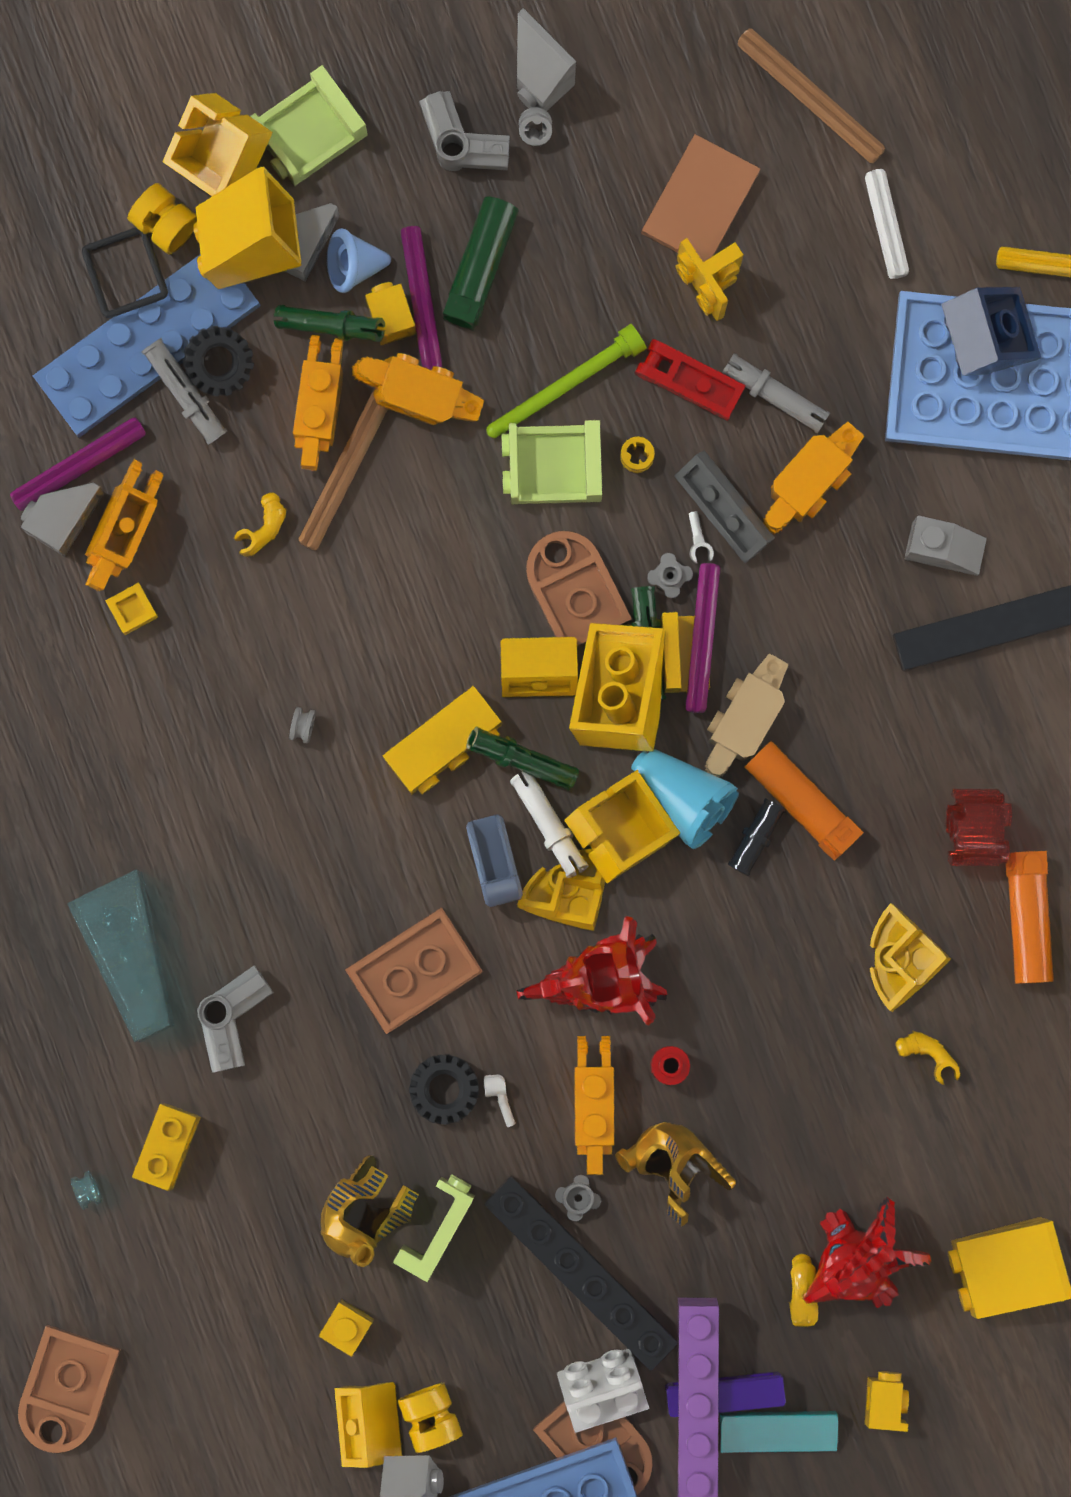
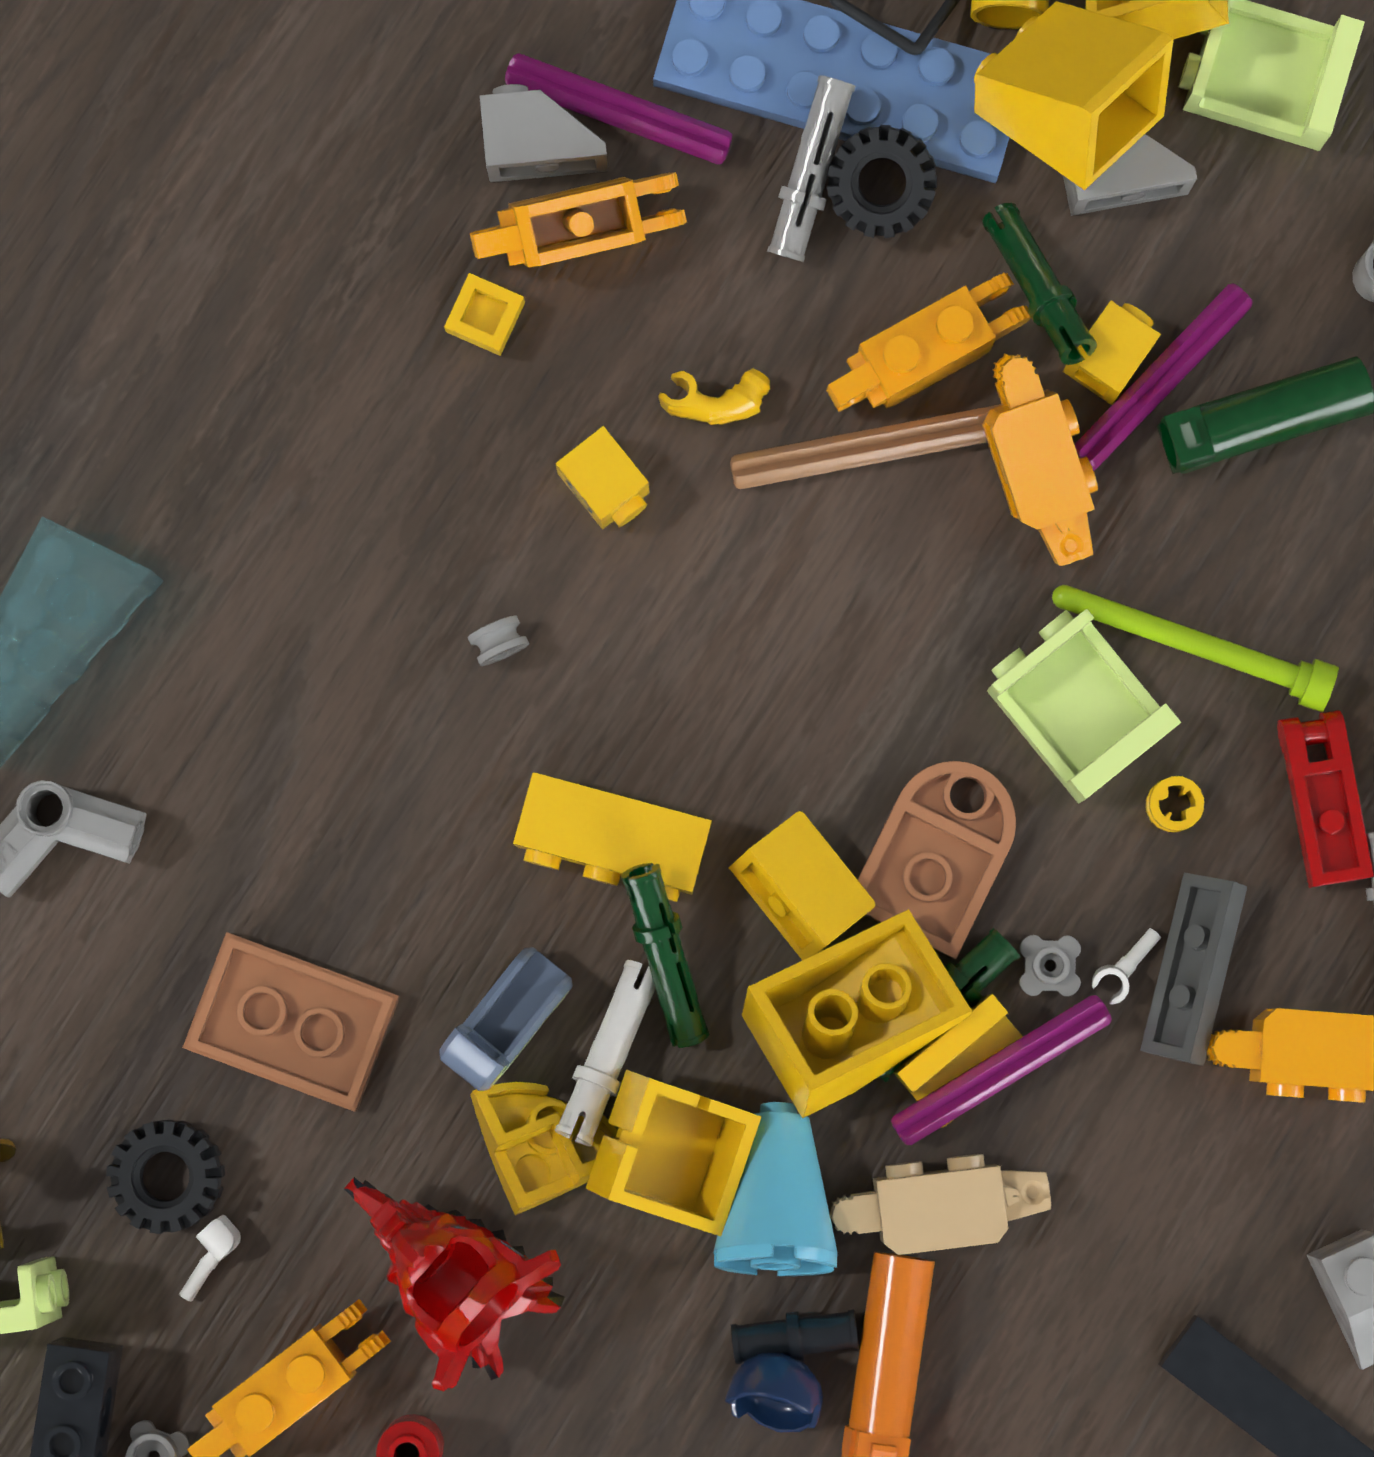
camera: 55 degrees right, 0 degrees up
(262, 611) = (604, 479): none -> yellow brick
(352, 260) = (1144, 253): light blue hat -> none
(777, 866) = (776, 1393): none -> dark blue hair

